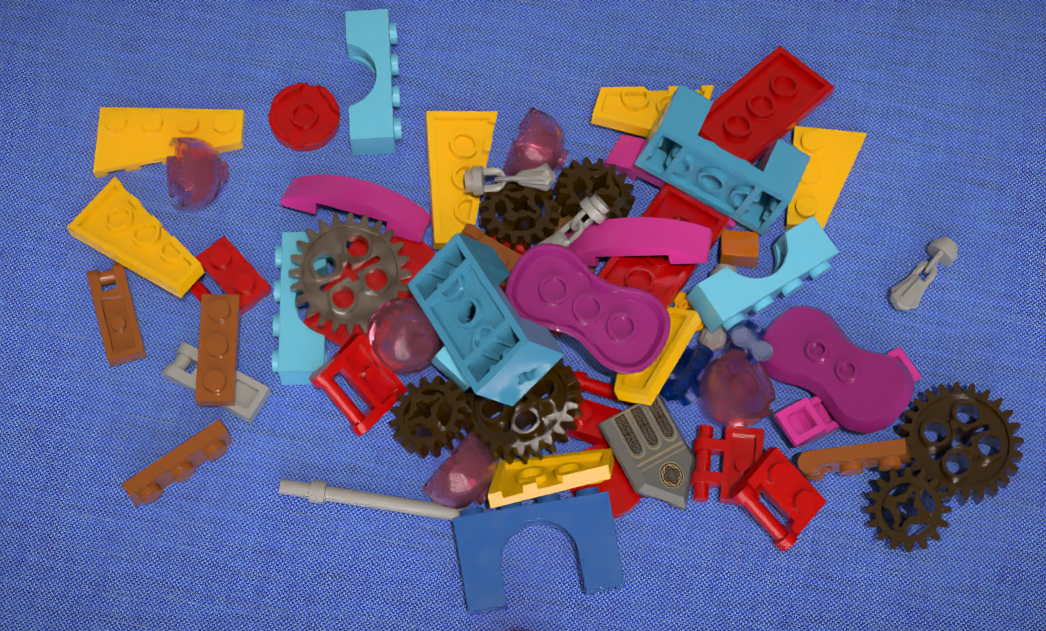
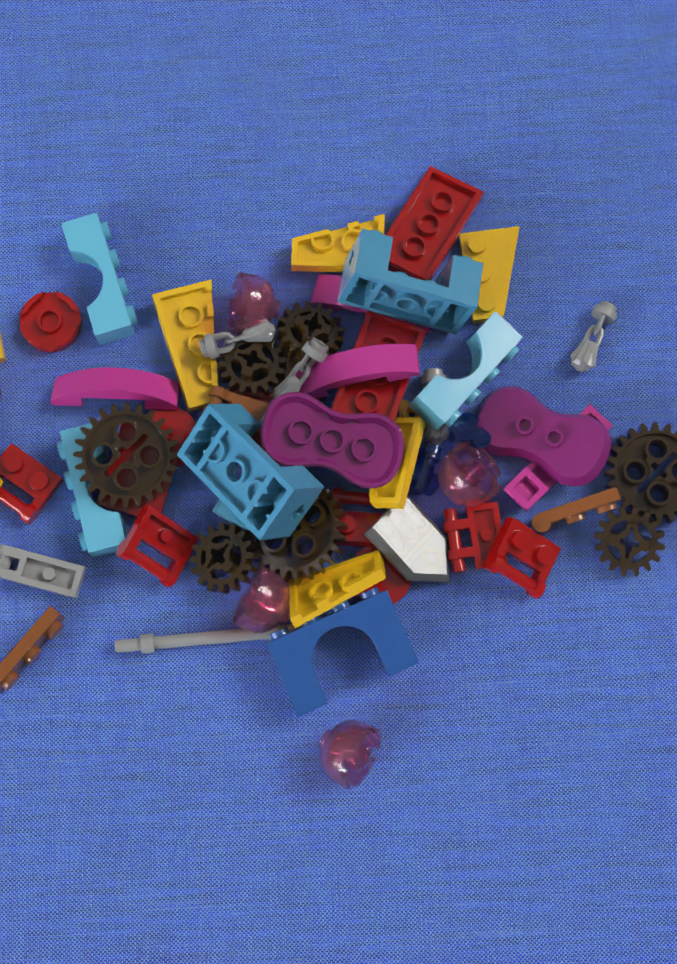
camera: 15 degrees left, 10 degrees up
(218, 350) = (33, 545): dark orange plate -> none
(403, 336) = (184, 497): clear pink cylinder -> none
(739, 248) = (439, 350): orange slope -> none

